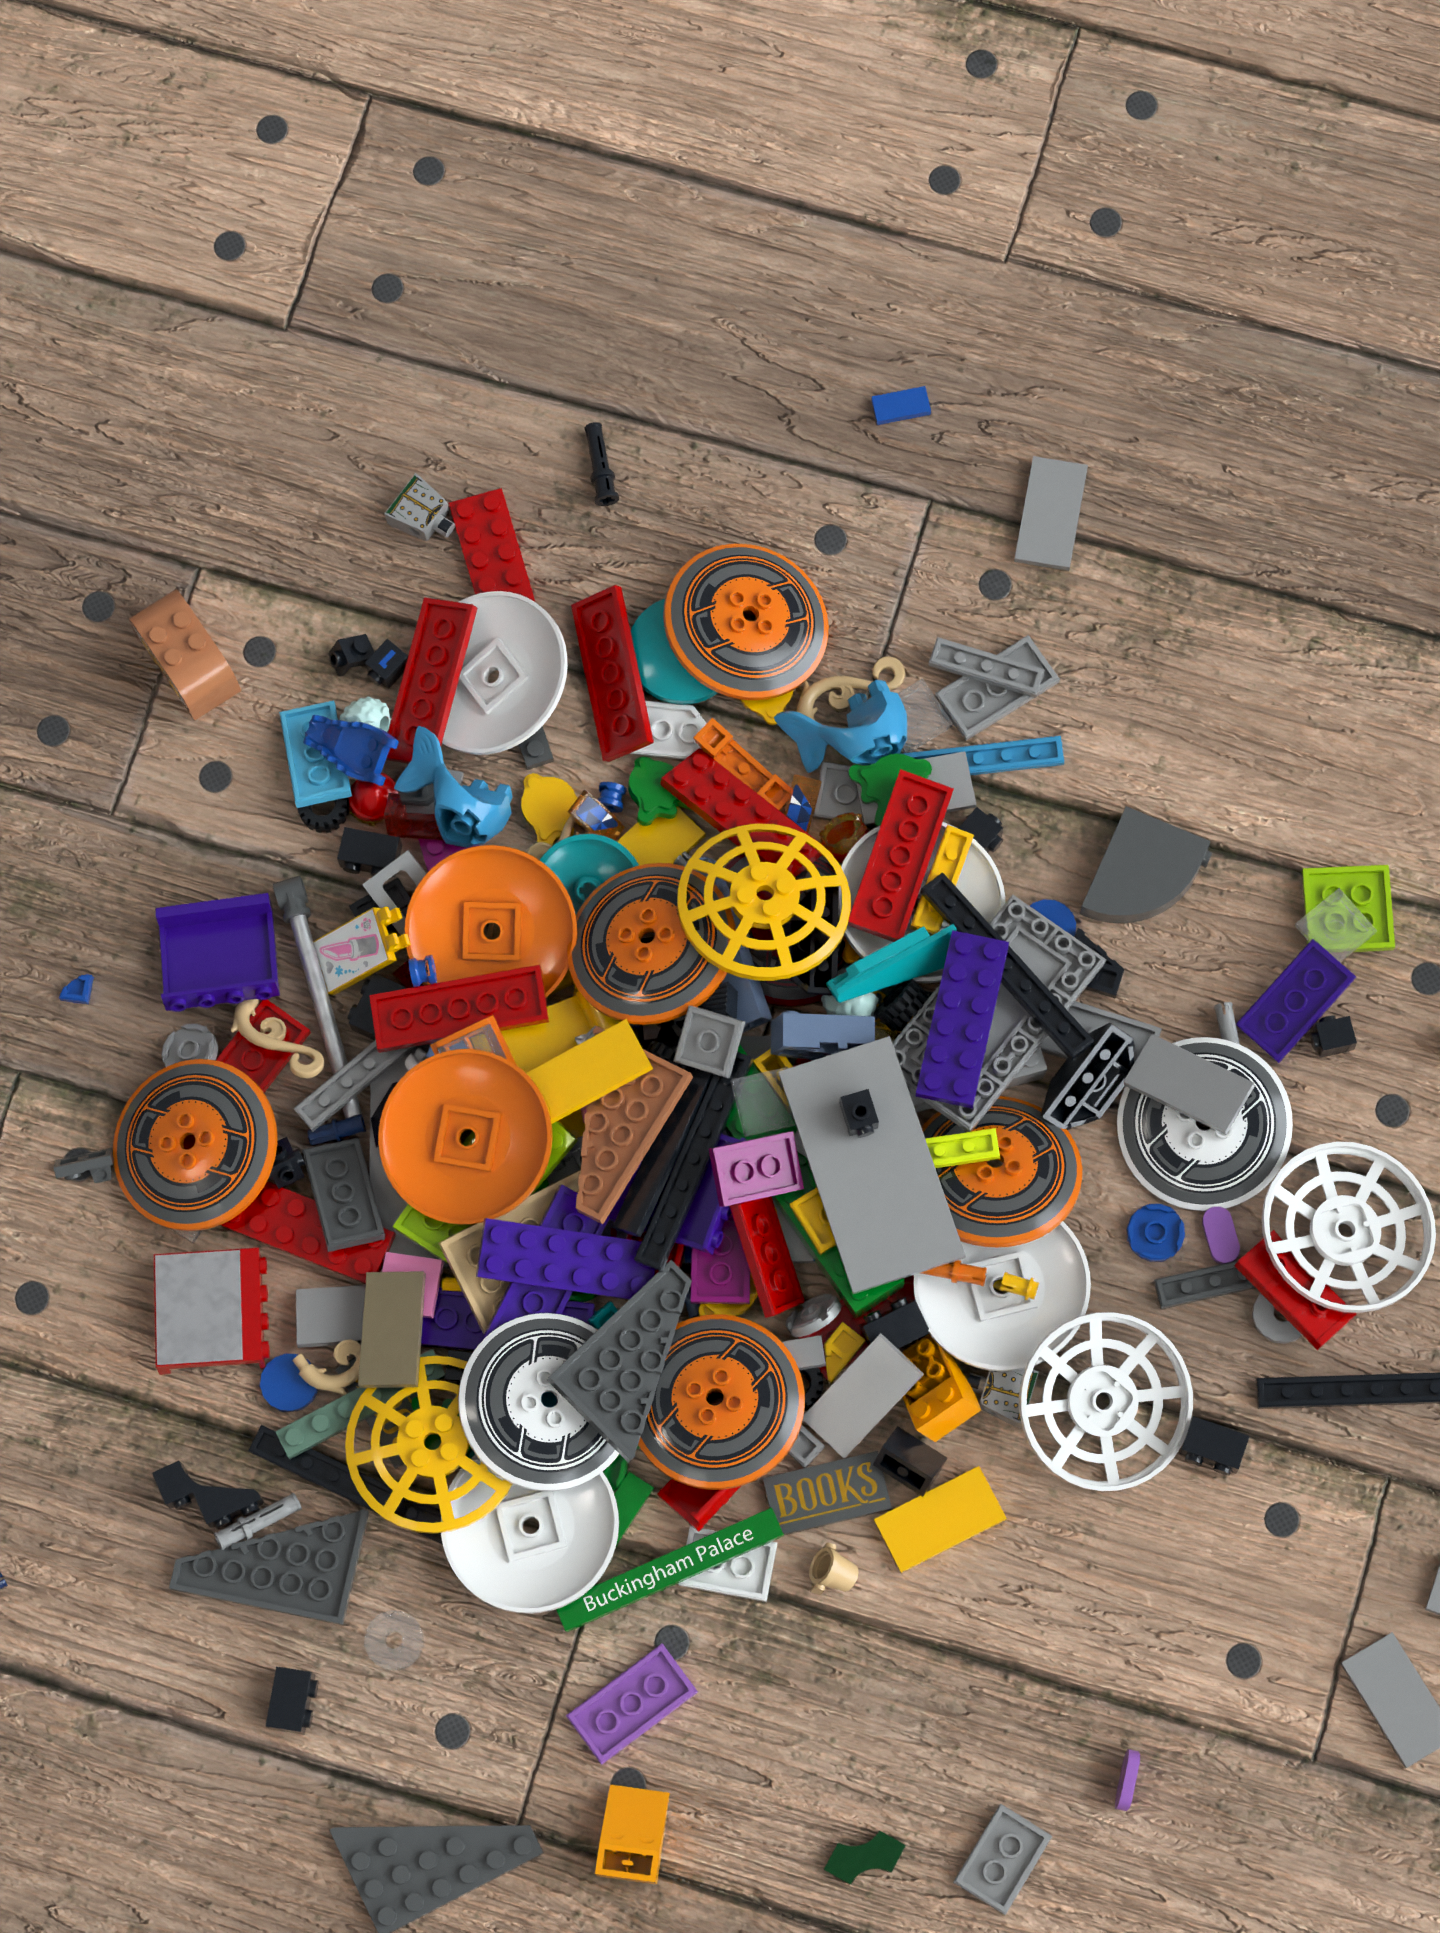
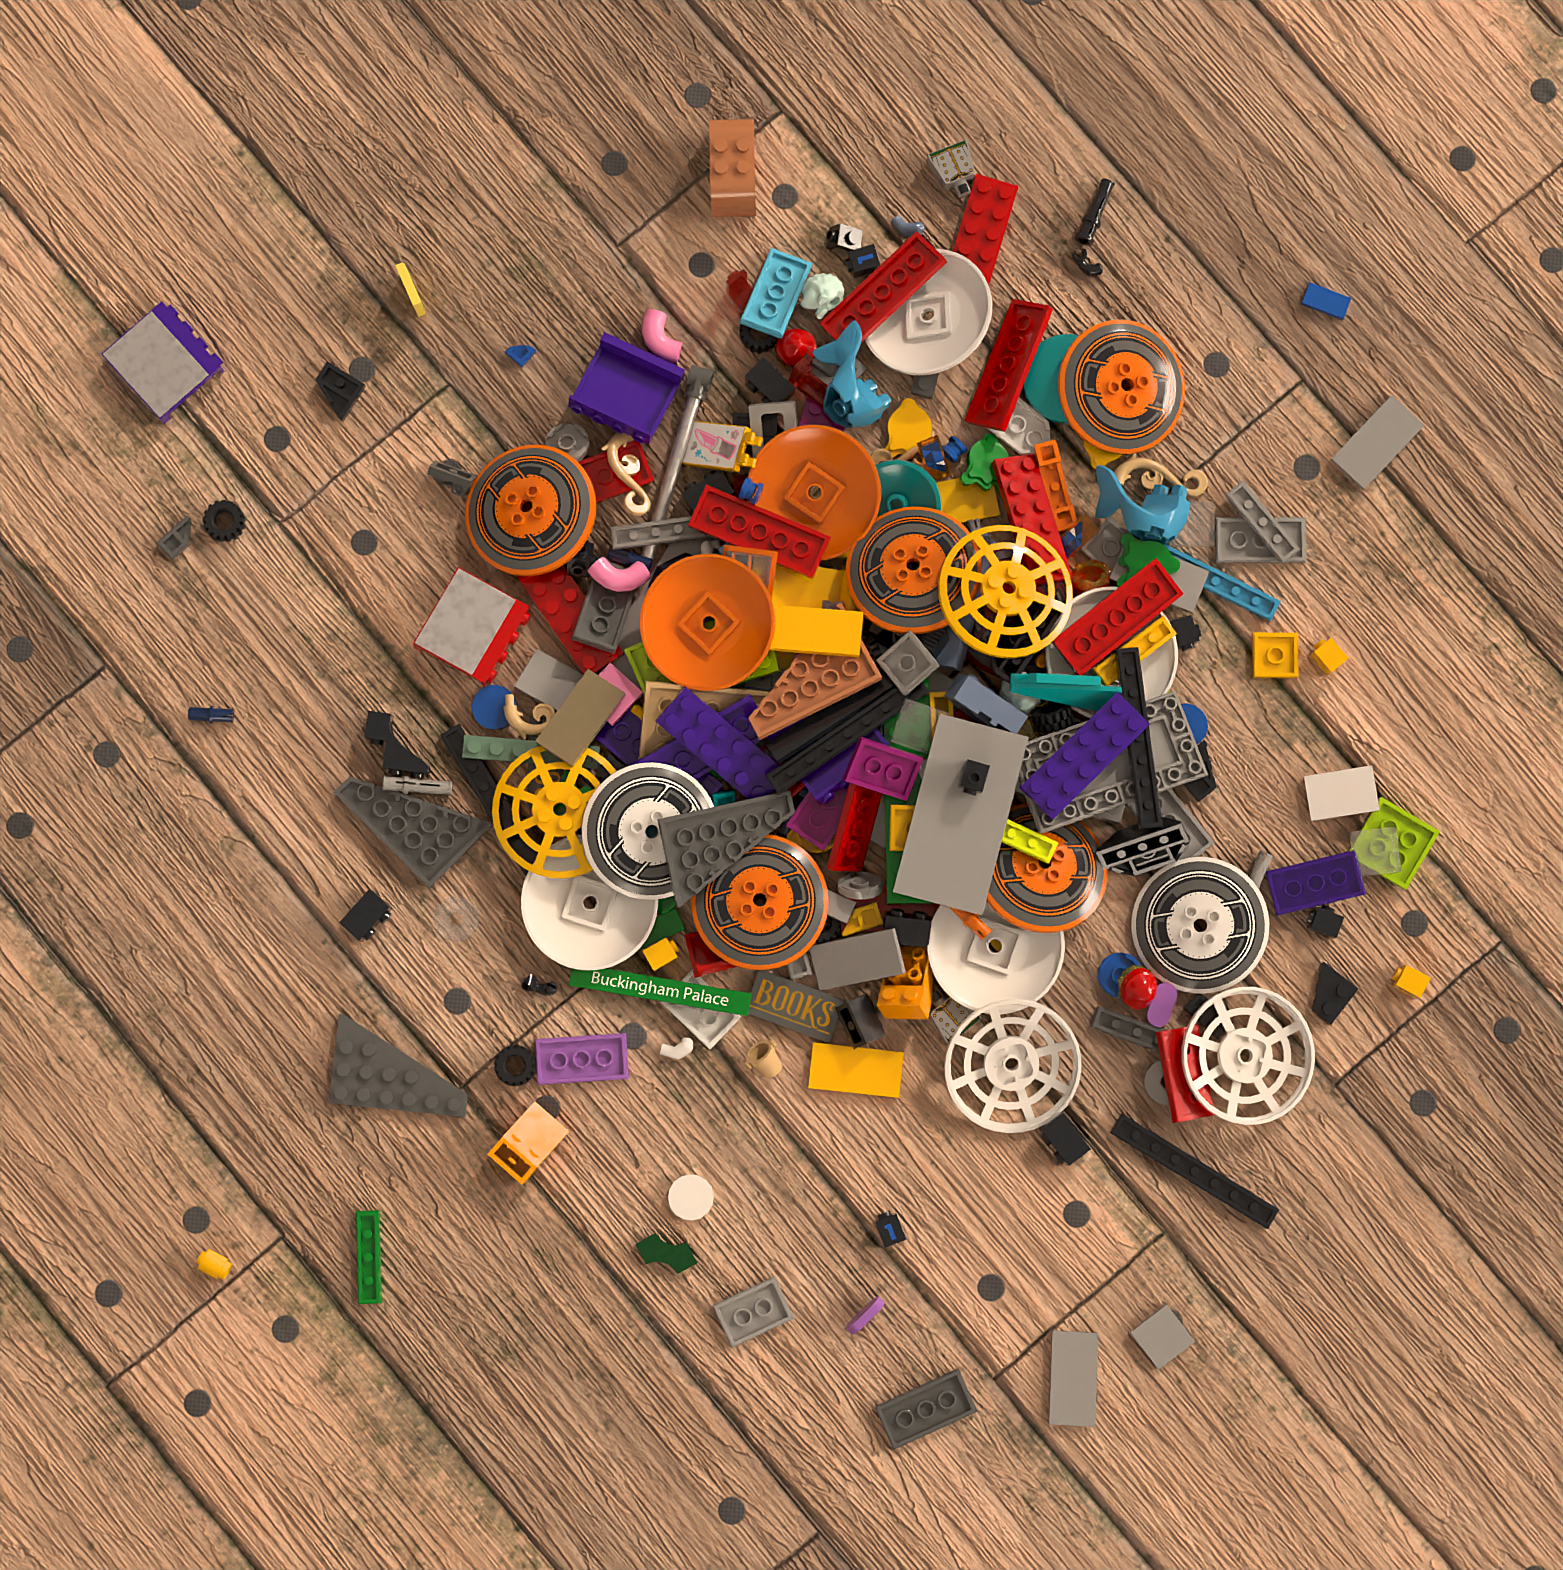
camera: 25 degrees right, 10 degrees up
(214, 880) = (656, 339): none -> bright pink cylinder
(272, 775) = (739, 289): none -> clear red bracket
(339, 1156) = (619, 579): none -> bright pink cylinder
(352, 746) = (802, 306): blue animal -> none
(411, 604) = (907, 229): none -> sand blue arm
(543, 1652) = (529, 984): none -> black arm
(544, 1752) = (504, 1055): none -> black tyre
(630, 526) = (1088, 269): none -> black arm
(645, 1530) = (661, 953): none -> yellow brick
(733, 1624) = (679, 1050): none -> white arm
(851, 1777) = (690, 1197): none -> white tile
(1019, 1286) = (1005, 955): yellow pin -> none
(1091, 1667) = (889, 1228): none -> black brick
(1092, 795) = (1275, 655): none -> yellow tile
(1144, 870) = (1275, 729): dark grey brick -> none
(1148, 759) = (1328, 655): none -> yellow brick
(1182, 1231) = (1137, 987): none -> red hair
(1189, 1084) = (1206, 894): light grey tile -> none
(1259, 891) = (1341, 793): none -> white tile
(1262, 1841) = (925, 1408): none -> dark grey tile
(1277, 1215) = (1207, 1016): none -> black tile
(1392, 1107) = (1331, 994): none -> black wing

